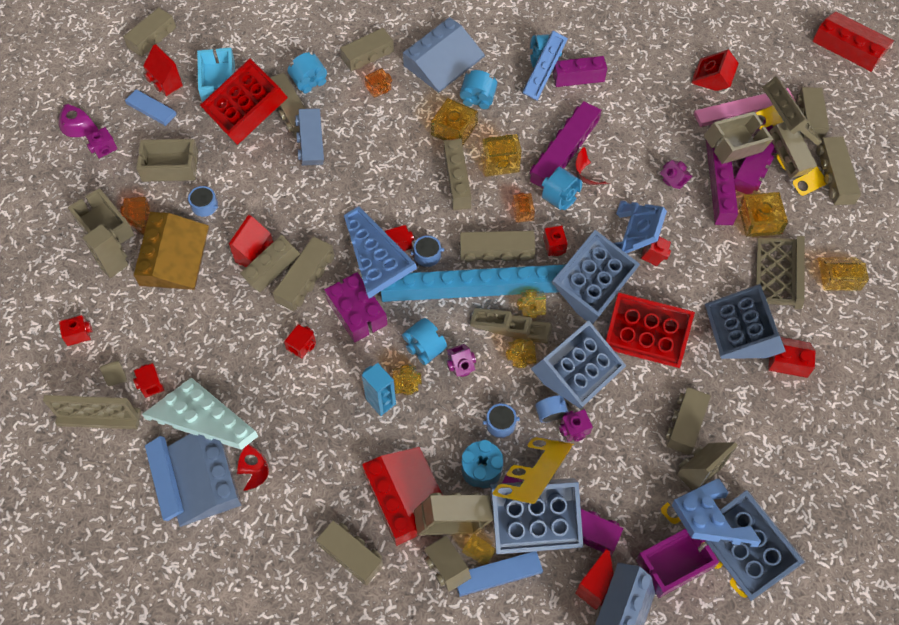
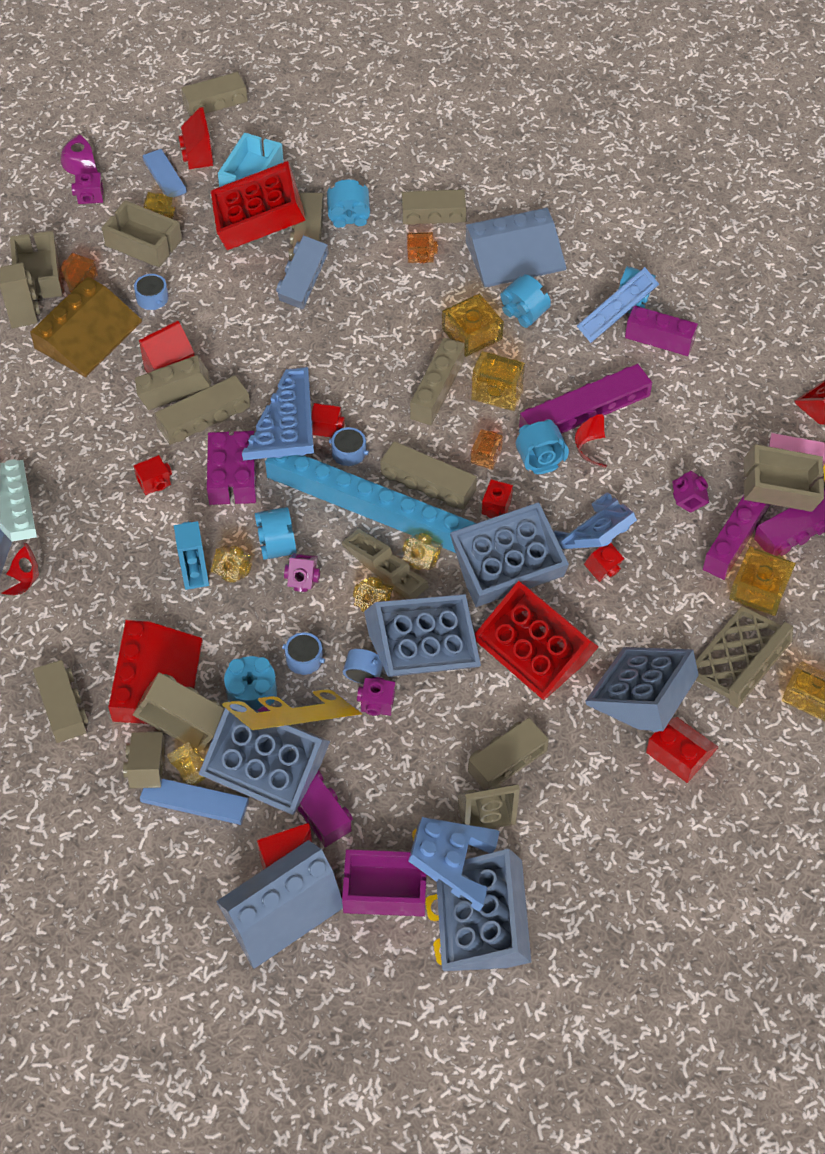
camera: 30 degrees right, 5 degrees down
(166, 131) = (160, 204): none -> clear yellow brick

